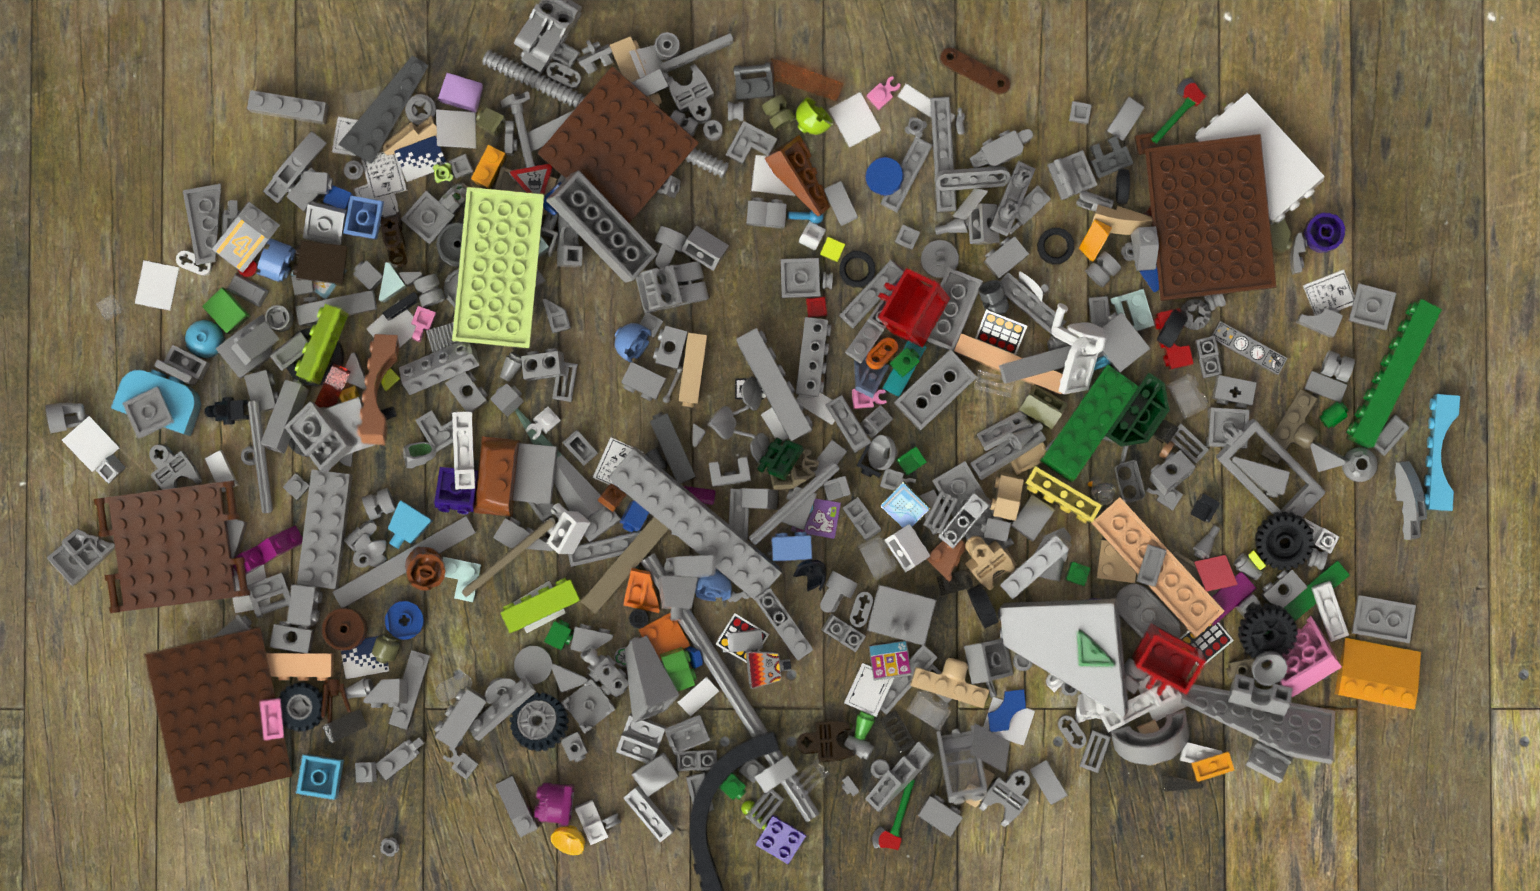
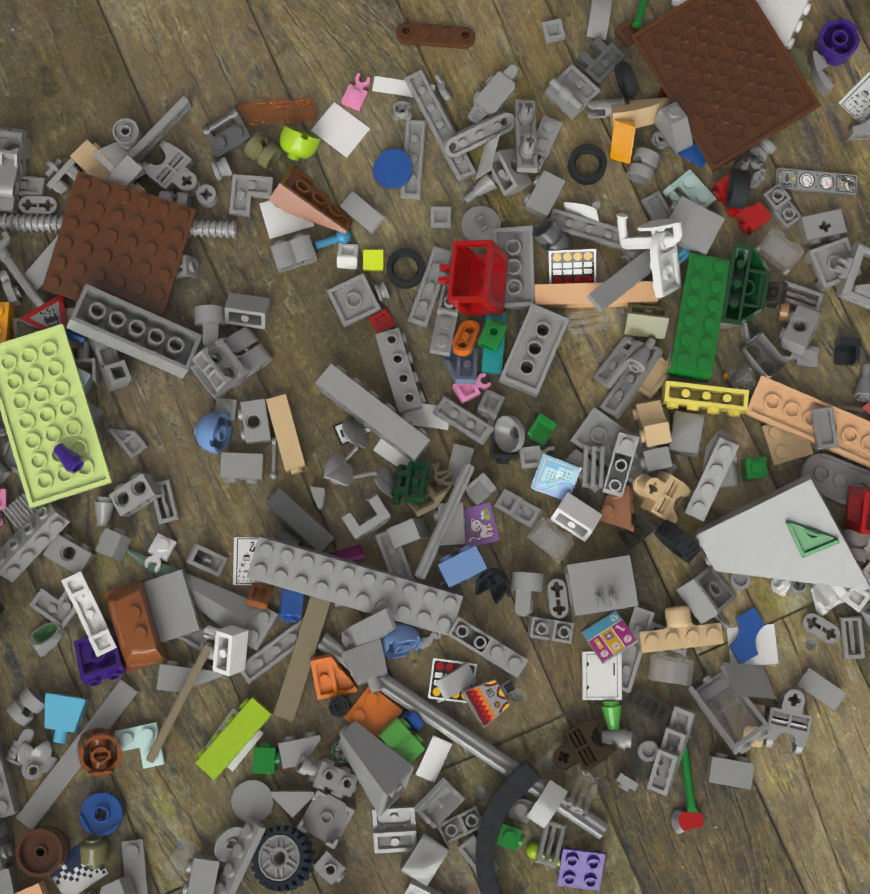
camera: 25 degrees left, 5 degrees down
(502, 313) = (70, 460): none -> dark purple cone

